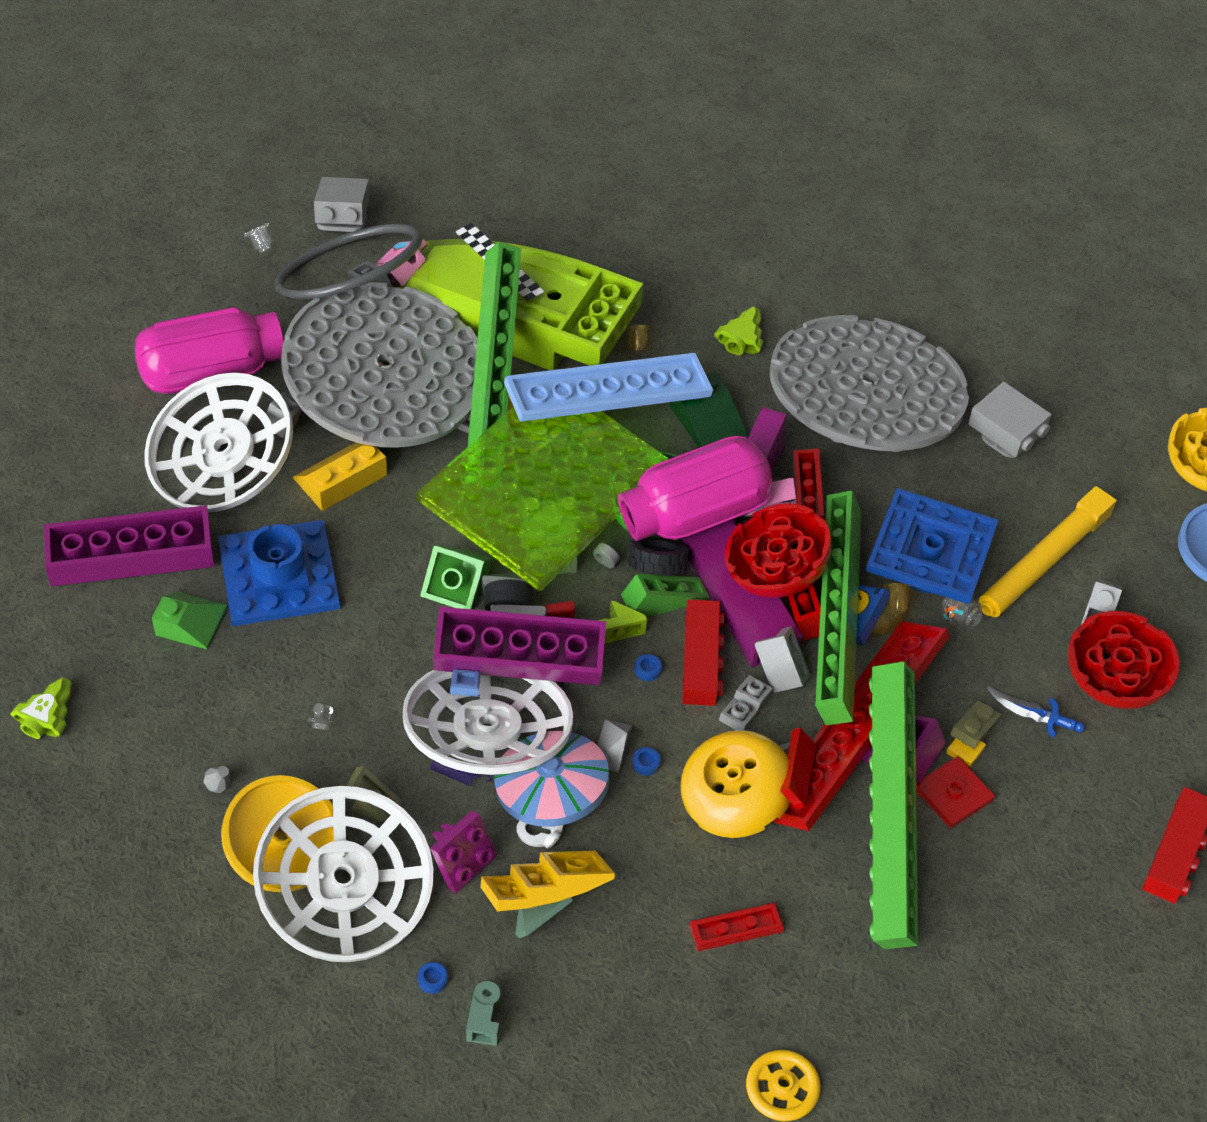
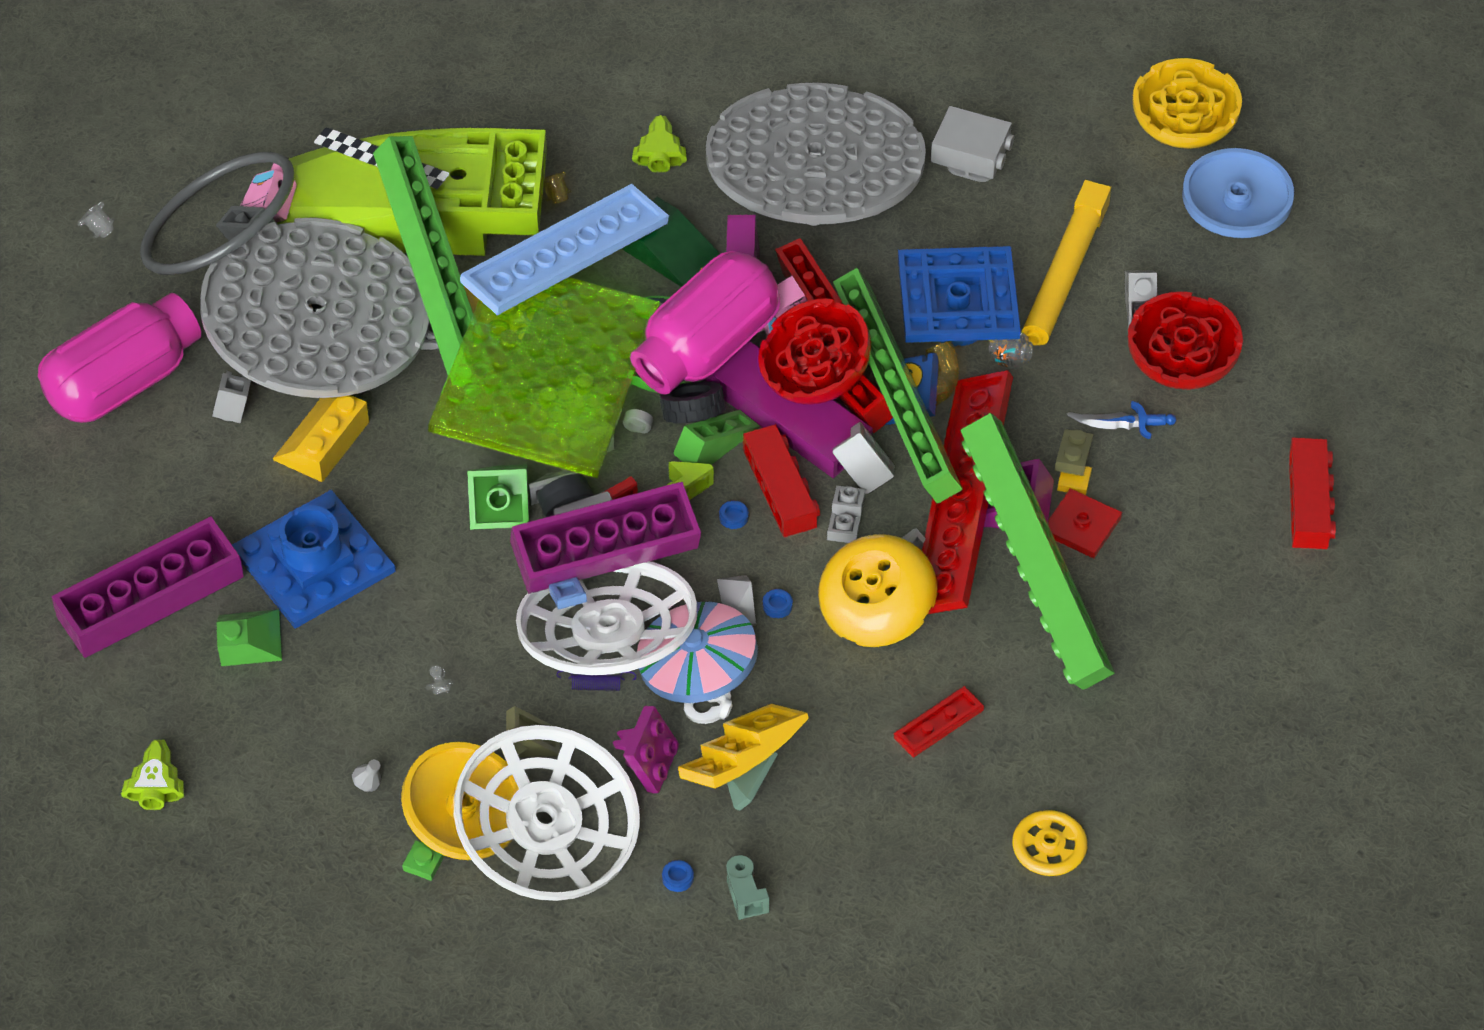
camera: 20 degrees left, 0 degrees up
(215, 434) = (174, 440): white dish -> none
(221, 874) = (422, 861): none -> bright green plate
(341, 204) = (168, 154): light grey brick -> none
(800, 764) = (927, 541): red tile -> none

